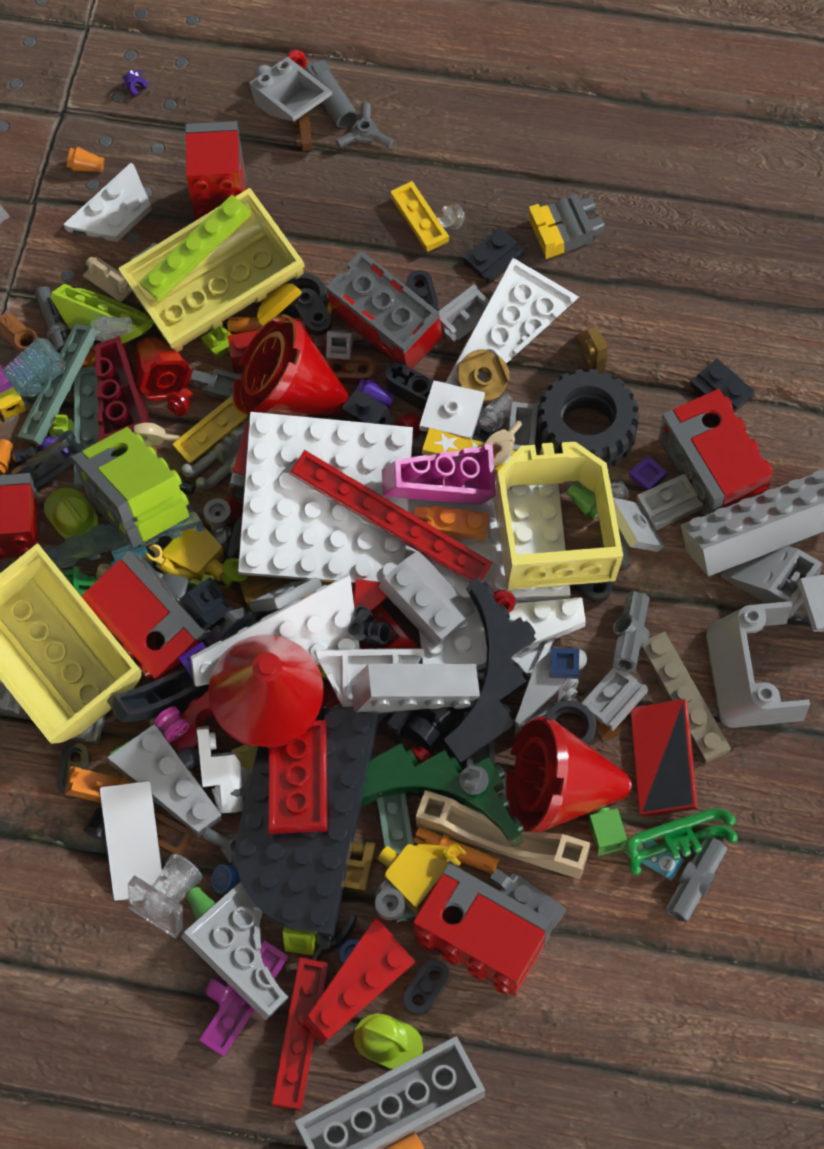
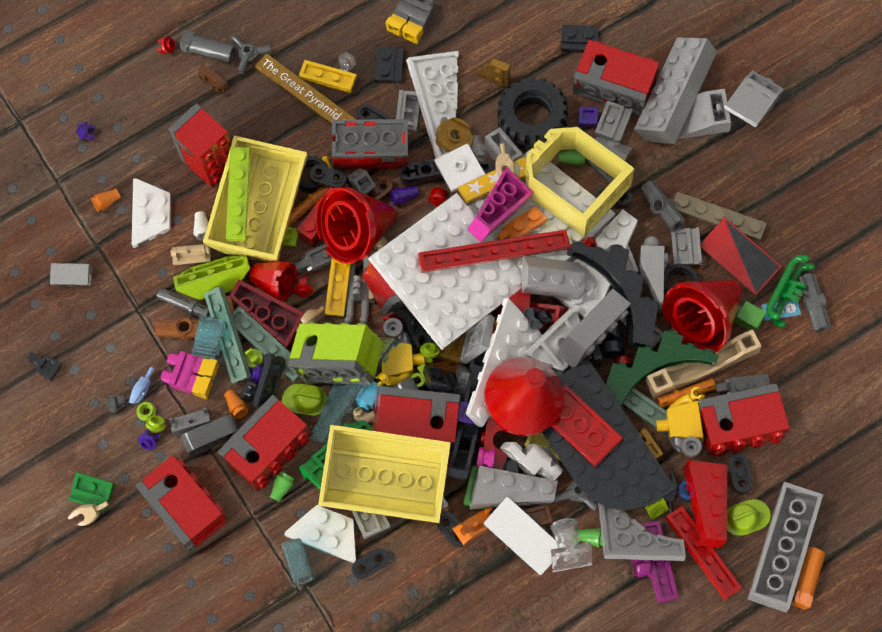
camera: 40 degrees left, 5 degrees up
(95, 826) = (494, 544): black tile -> none
(107, 328) = (230, 278): clear cone -> none
(224, 878) = (588, 512): tile -> none
(276, 302) = (305, 188): yellow tile -> none
(287, 90) = (185, 64): light grey slope -> none
(365, 409) = (412, 209): black torso -> none
(380, 210) = (301, 90): none -> pearl gold tile
(474, 780) = (670, 348): dark grey plate -> none
(564, 663) = (655, 249): dark blue tile -> none
(737, 695) = (731, 181): light grey windscreen -> none

